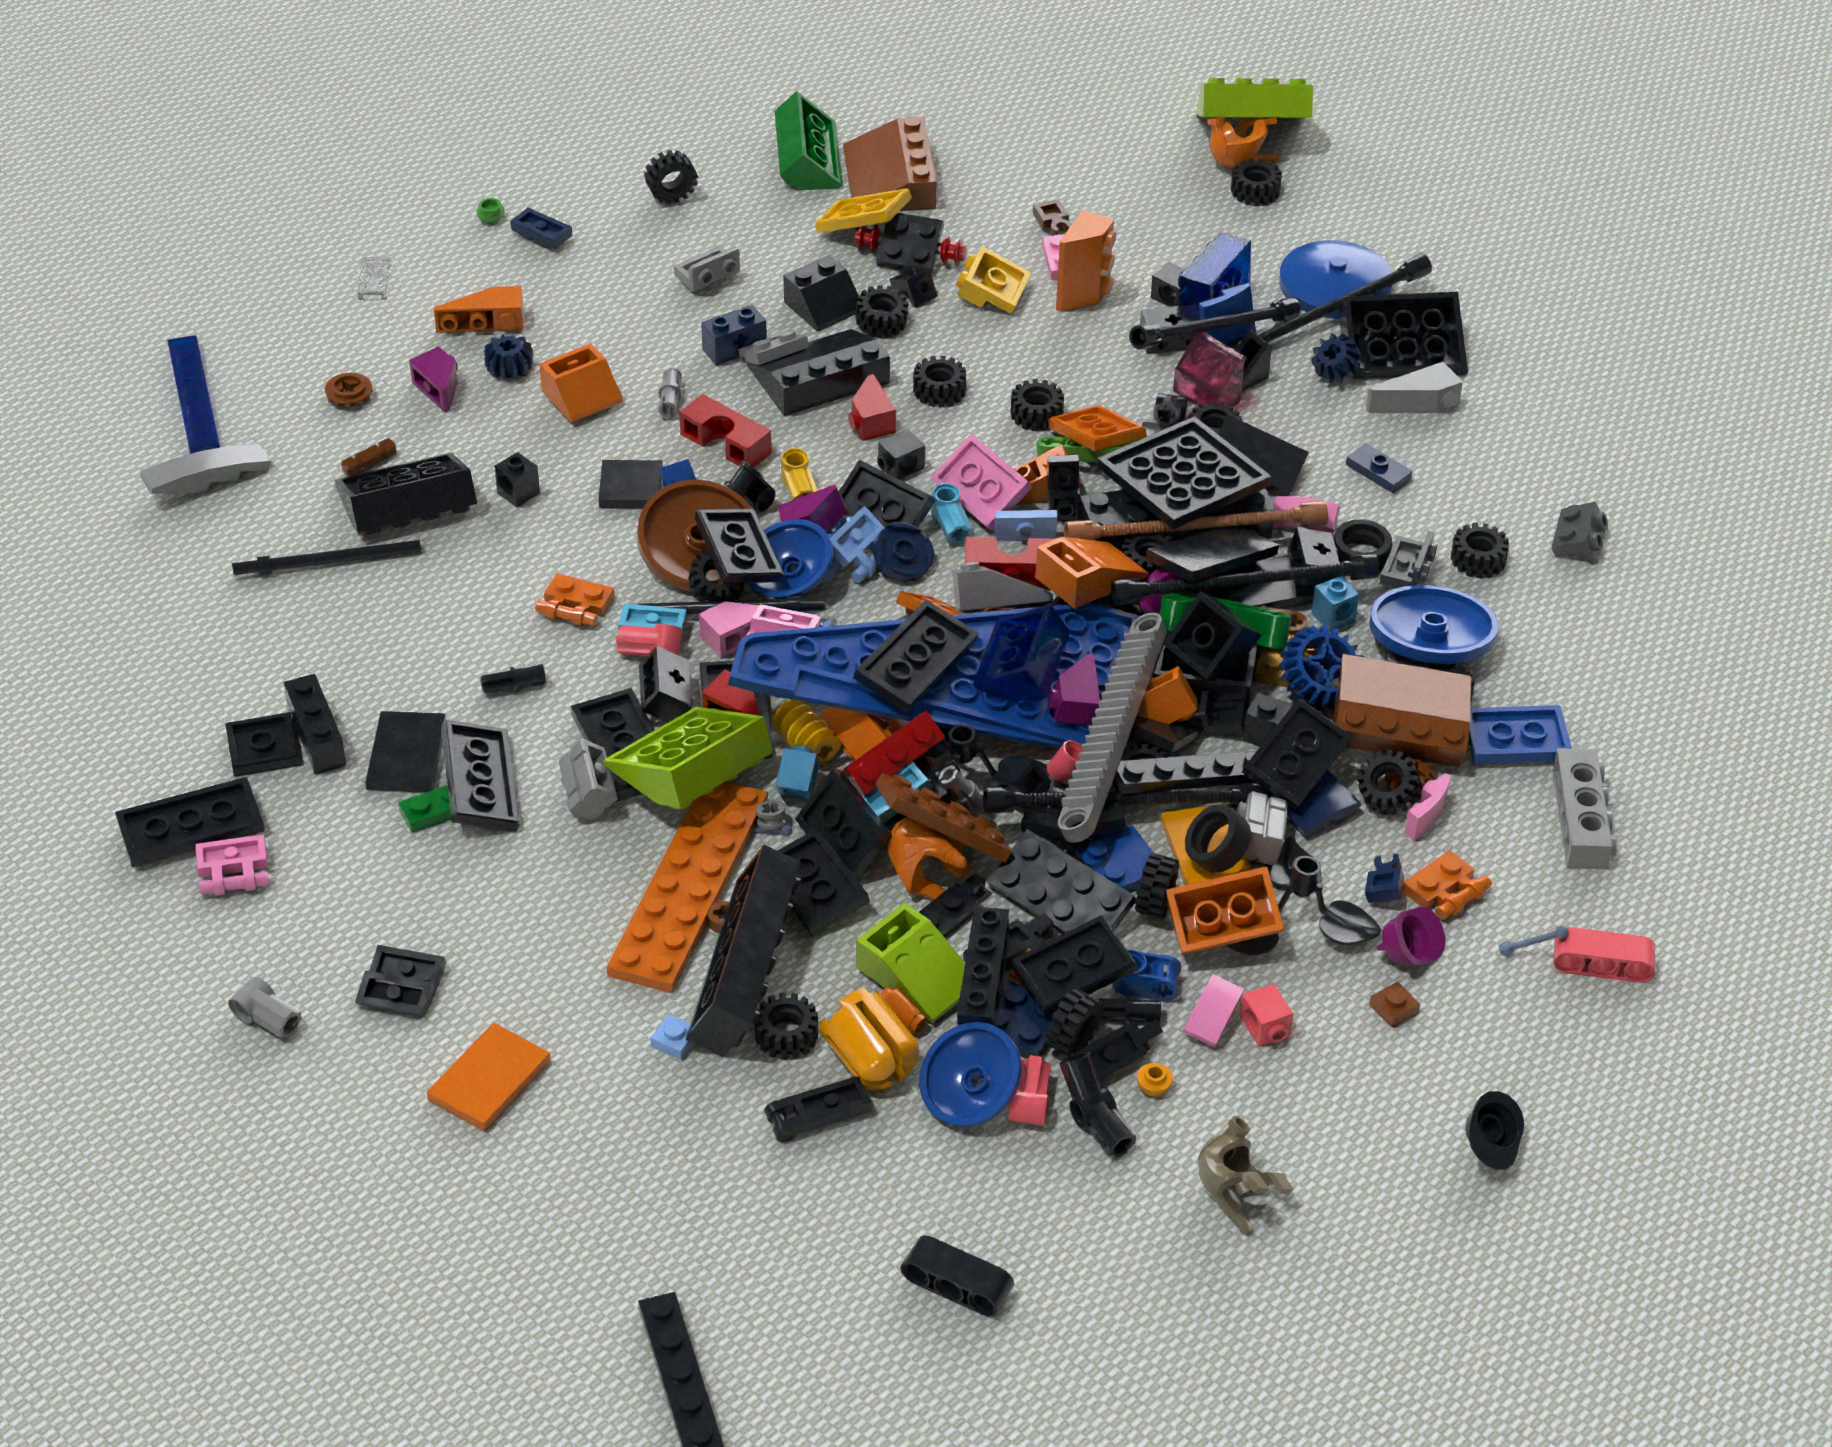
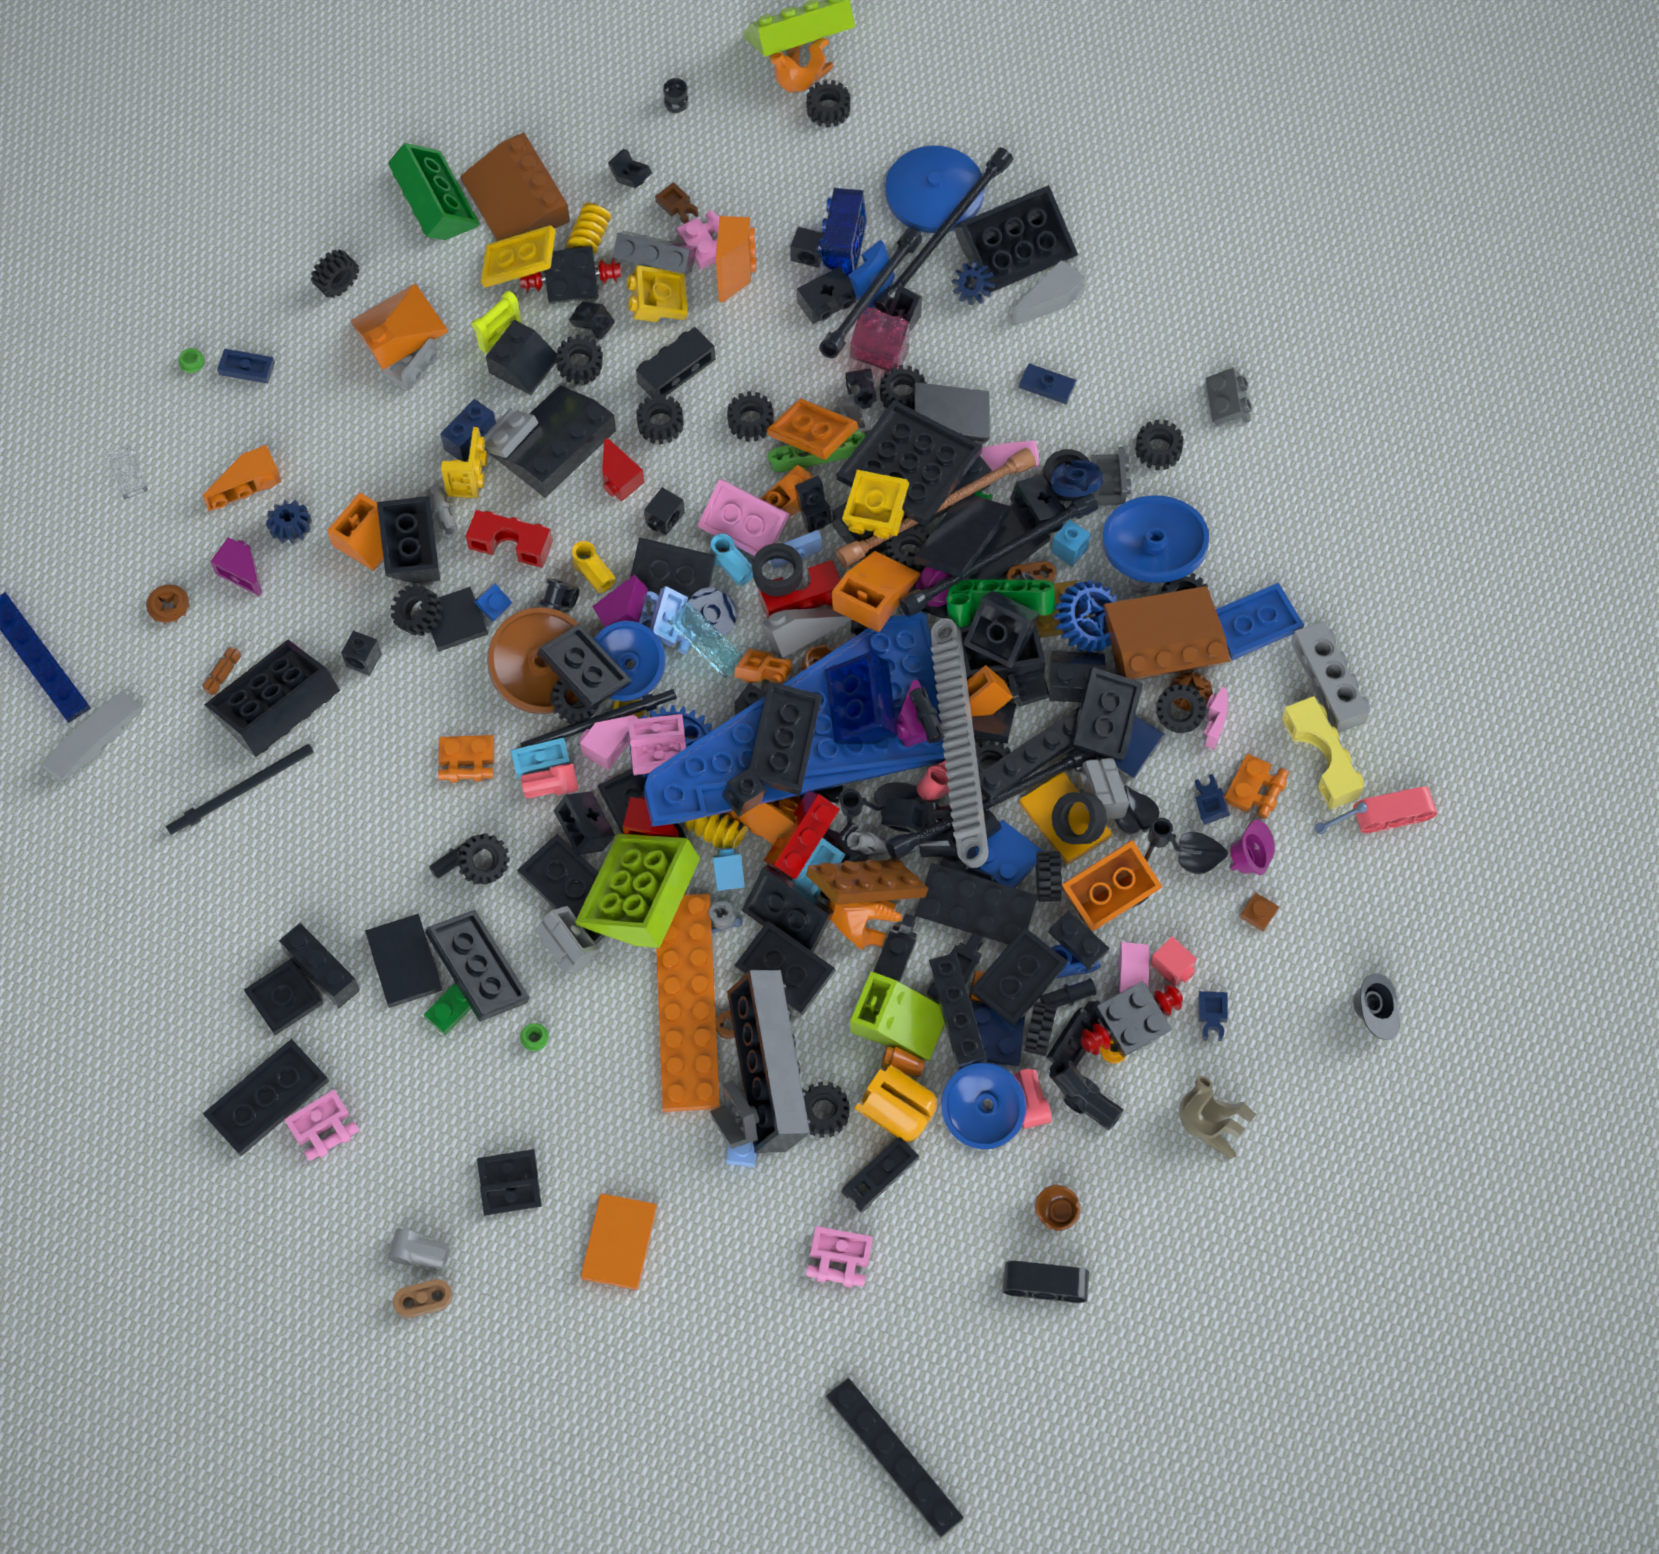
camera: 20 degrees left, 20 degrees up
(246, 1054) = (423, 1300): none -> medium nougat plate
(504, 859) = (534, 1029): none -> bright green plate
(532, 700) = (498, 853): none -> black tyre
(594, 459) = (404, 606): none -> black tyre
(620, 399) = (409, 540): none -> black slope
(679, 1004) = (735, 1119): none -> dark grey bracket
(710, 364) = (466, 478): none -> yellow bracket
(711, 234) = (398, 326): none -> orange slope
(734, 1162) = (842, 1248): none -> bright pink plate
(791, 246) = (496, 321): none -> neon yellow plate
(843, 681) = (744, 792): none -> black brick
(882, 565) = (706, 639): none -> clear light blue plate
(954, 209) = (589, 227): none -> yellow piece
(982, 340) = (675, 363): none -> black brick
(992, 540) = (777, 551): none -> black tyre
(1007, 244) = (654, 252): none -> brick
(1007, 1203) = (1058, 1207): none -> dark orange hair
(1014, 178) = (627, 170): none -> black bracket
(1086, 684) = (926, 715): none -> black pin
(1098, 135) = (675, 95): none -> black wheel
(1125, 490) = (875, 504): none -> yellow plate
(1161, 951) = (1078, 940): none -> black plate
(1188, 1050) = (1132, 1019): none -> plate
(1289, 1079) = (1213, 1010): none -> dark blue plate
(1364, 542) = (1076, 479): none -> dark blue tile
(1537, 845) = (1309, 723): none -> light yellow arch

